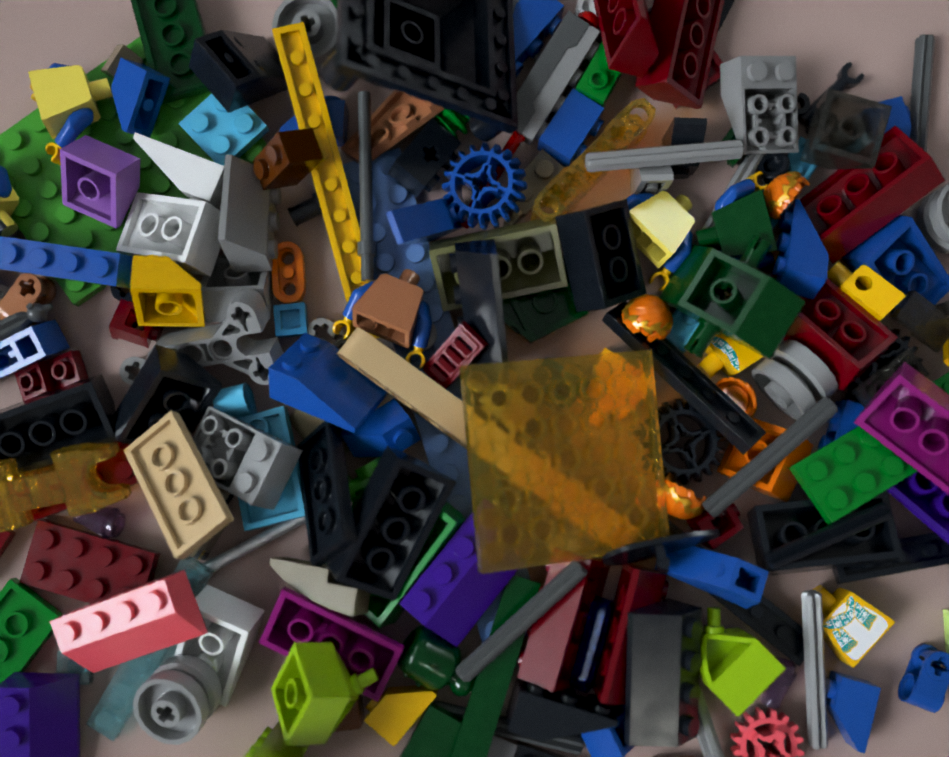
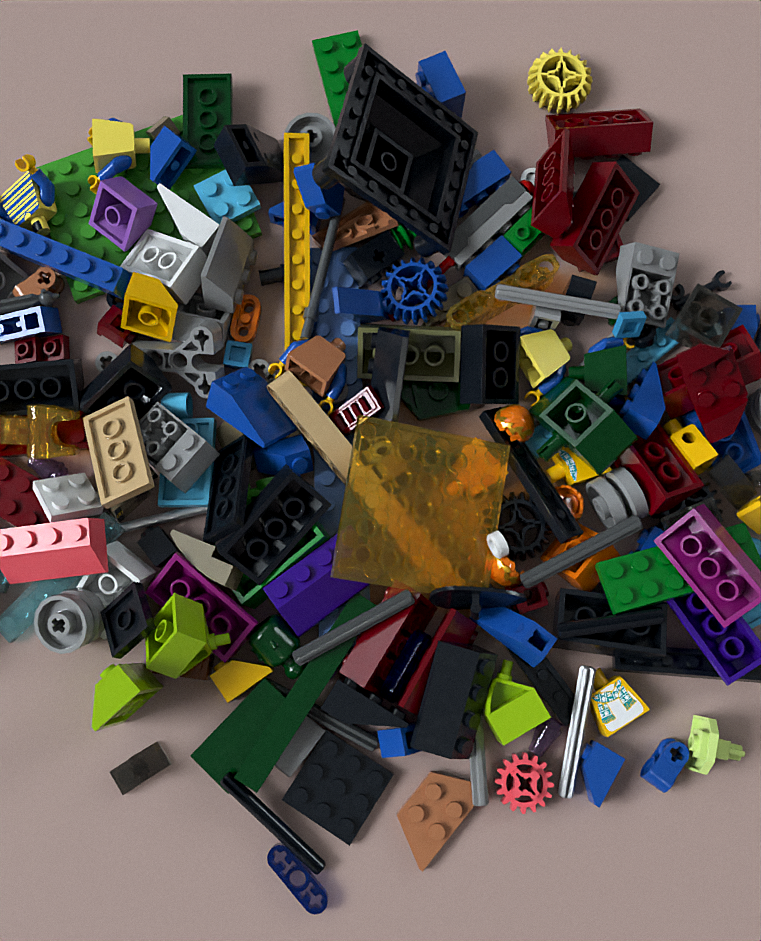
camera: 10 degrees right, 5 degrees down
(131, 552) = (67, 497): none -> white plate
(247, 685) = (127, 620): none -> black plate
(257, 579) = (158, 546): none -> black brick
(287, 159) = (269, 231): reddish brown brick -> none
(338, 106) = (321, 202): none -> blue slope
(668, 476) = (497, 544): none -> white tile
(757, 161) = (629, 324): none -> dark azure plate
(782, 192) = (643, 354): orange hair -> none
(884, 217) = (714, 388): none -> dark red piece

